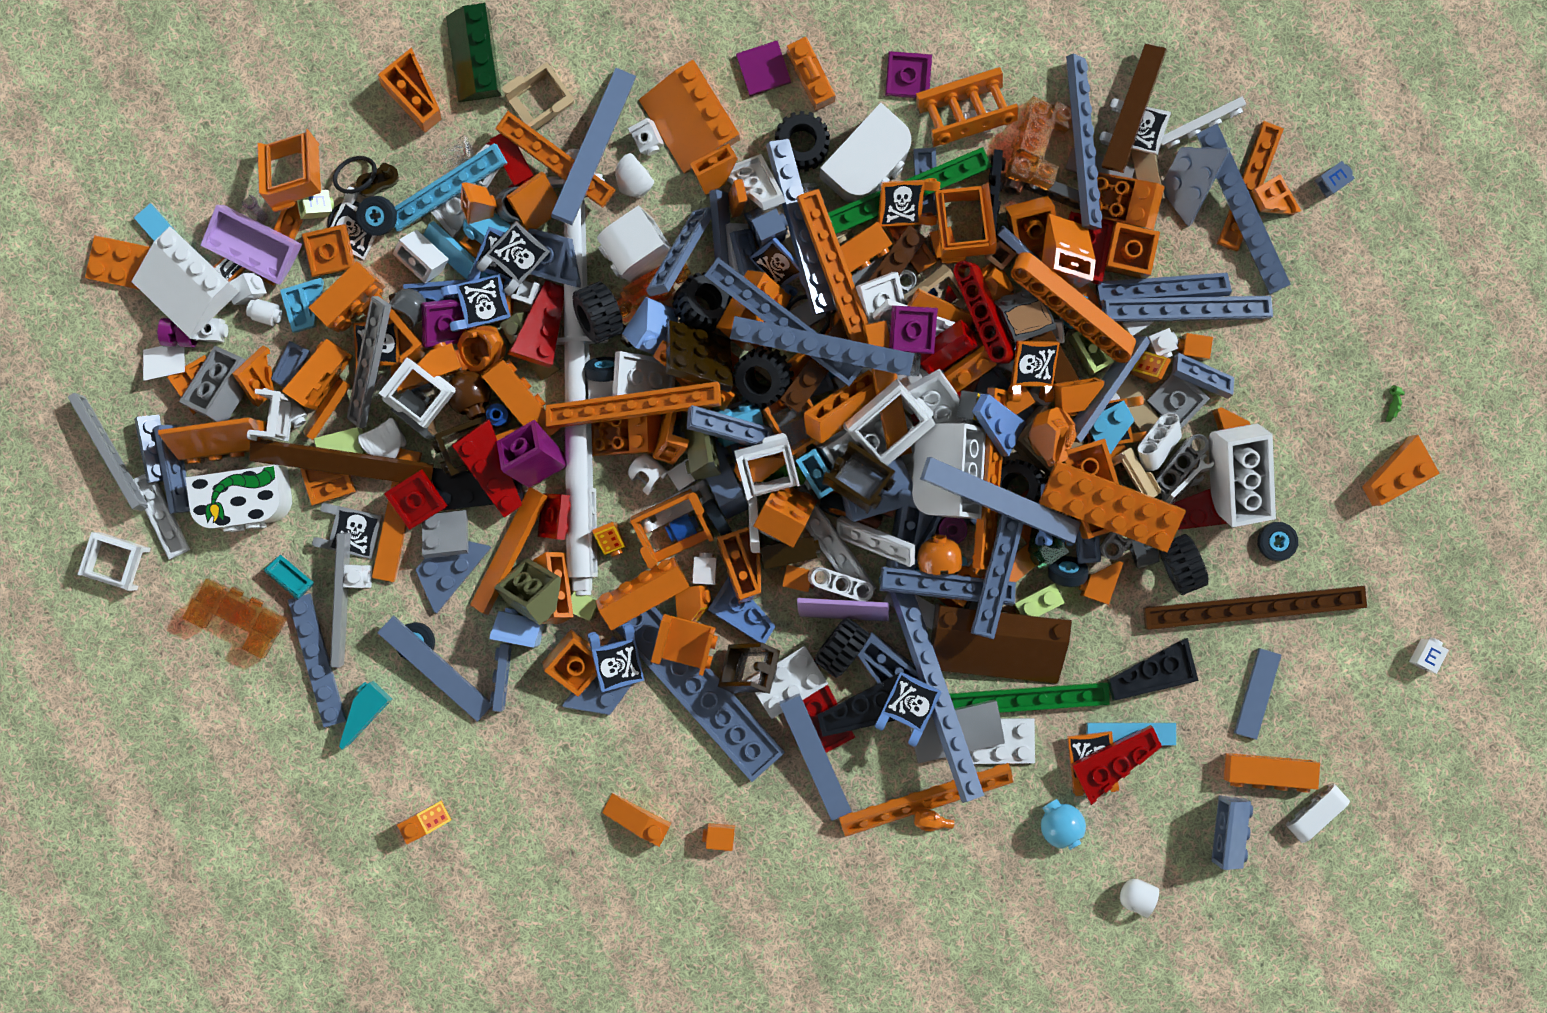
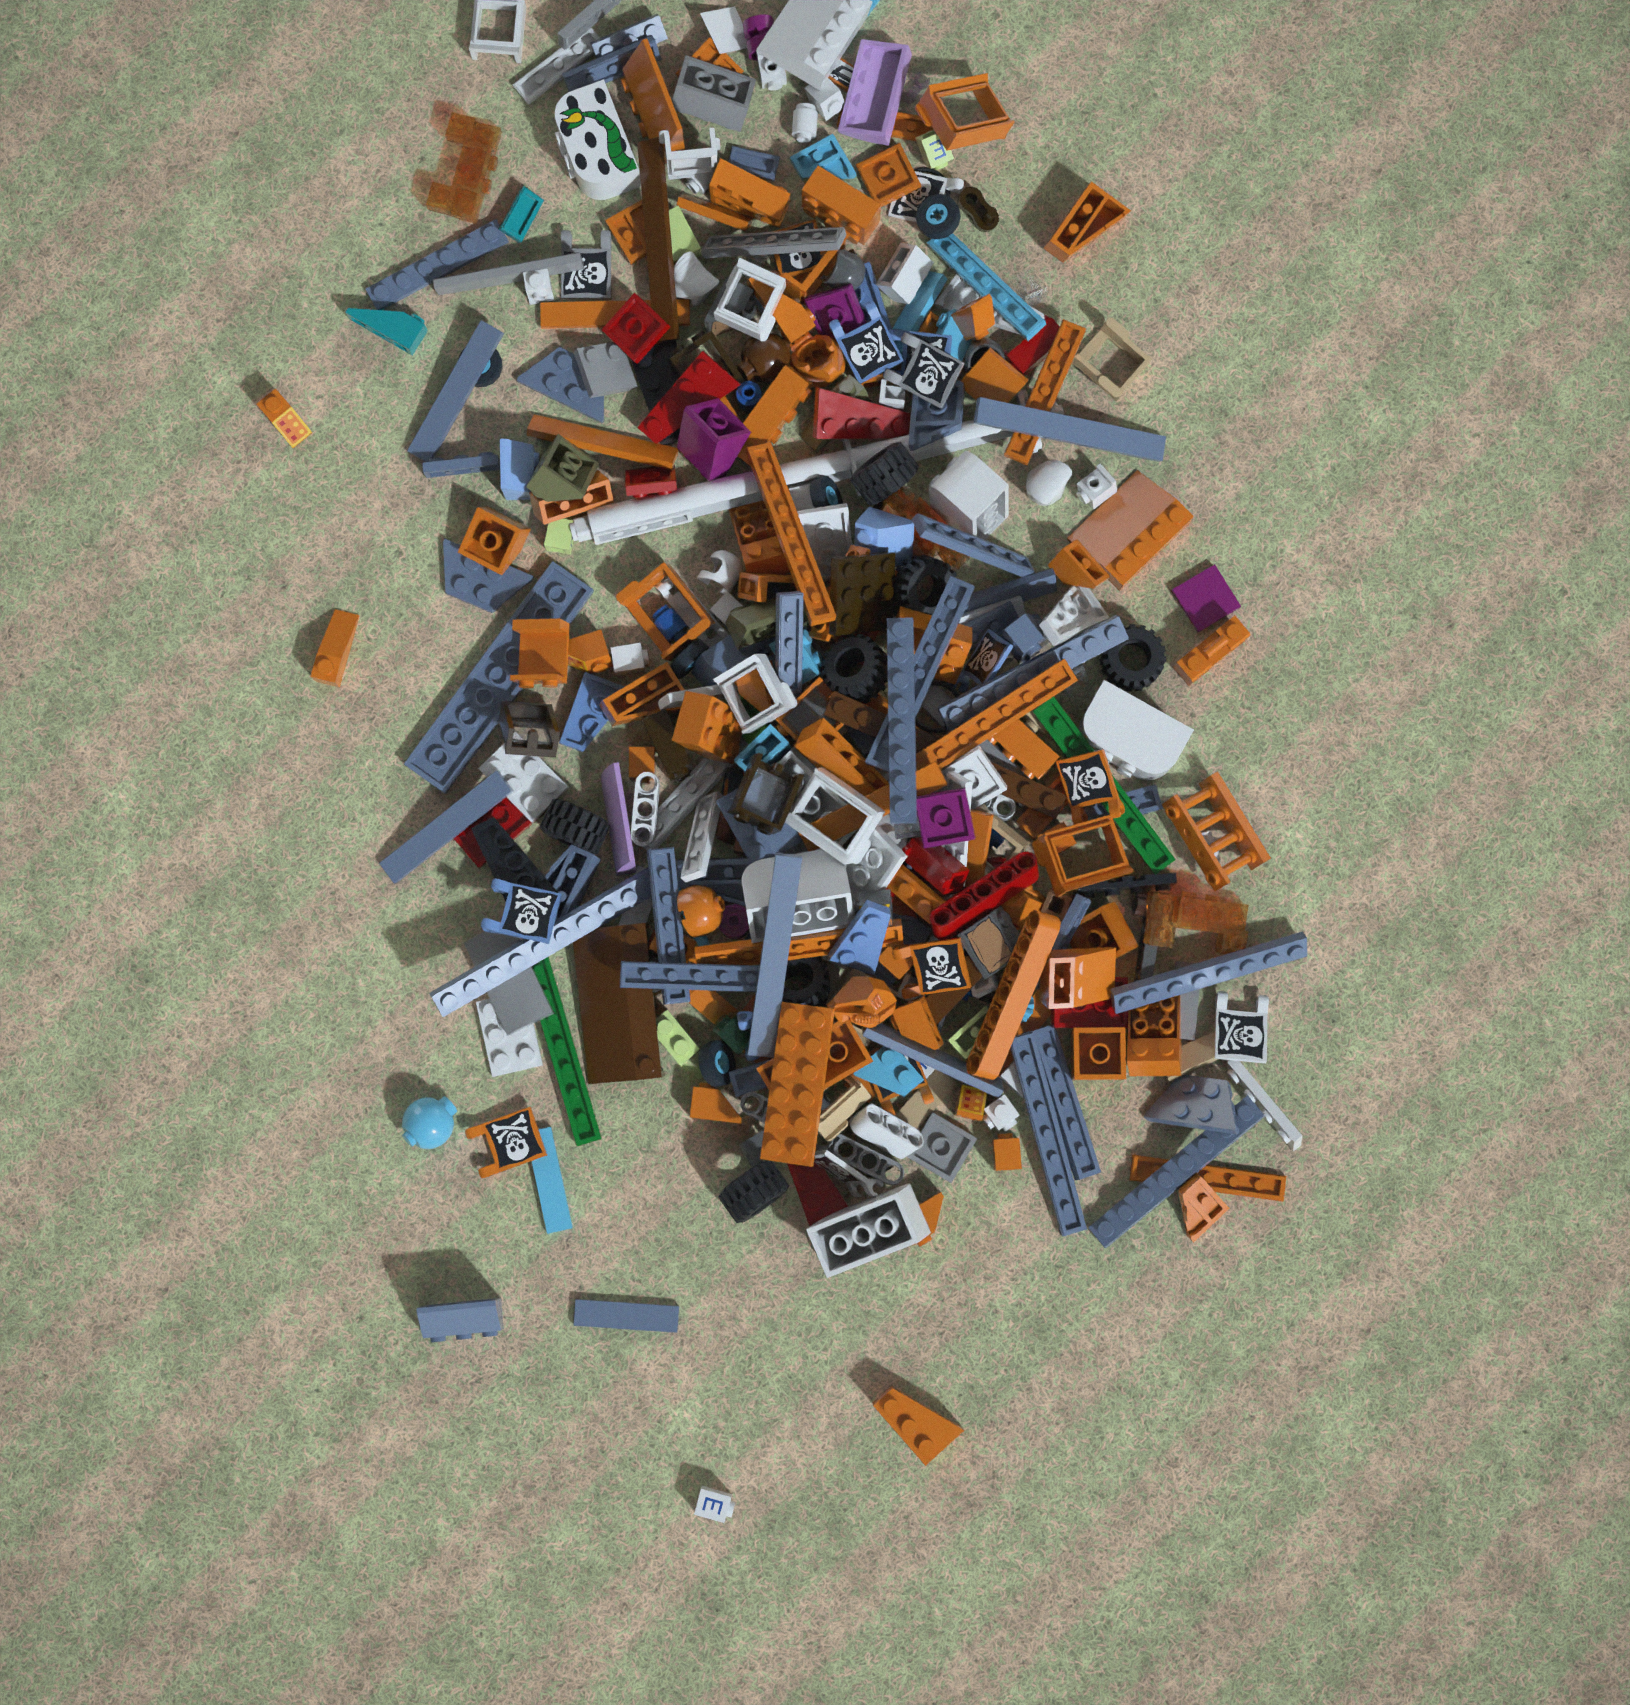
camera: 80 degrees right, 5 degrees down
(255, 374) = (732, 128): orange wing -> none
(364, 186) = (966, 195): black tyre -> none
(473, 53) = (1143, 280): dark green slope -> none
(610, 539) = (639, 546): orange slope -> none
(617, 662) = (505, 586): flag -> none
(642, 593) = (586, 593): orange brick -> none
(719, 836) = (335, 742): orange brick -> none
(737, 198) = (1049, 598): orange tile -> none
(907, 74) = (1239, 760): magenta tile -> none
(926, 799) = (422, 957): orange plate -> none
(930, 821) = (402, 974): orange piece -> none
(1108, 765) = (507, 1158): red wing -> none
(1134, 108) = (1261, 1020): reddish brown tile -> none
(1139, 897) = (365, 1227): white helmet -> none
(1160, 671) = (627, 1196): black wing -> none
(1203, 375) = (975, 1168): sand blue plate -> none
(1255, 607) = (724, 1290): reddish brown plate -> none
(1266, 539) = (806, 1286): black bush -> none
(1271, 771) = (540, 1350): orange brick -> none
(1318, 814) = (504, 1416): white beam -> none
(1335, 179) = (1239, 1272): sand blue brick -> none
(1395, 405) = (992, 1402): bright green piece -> none

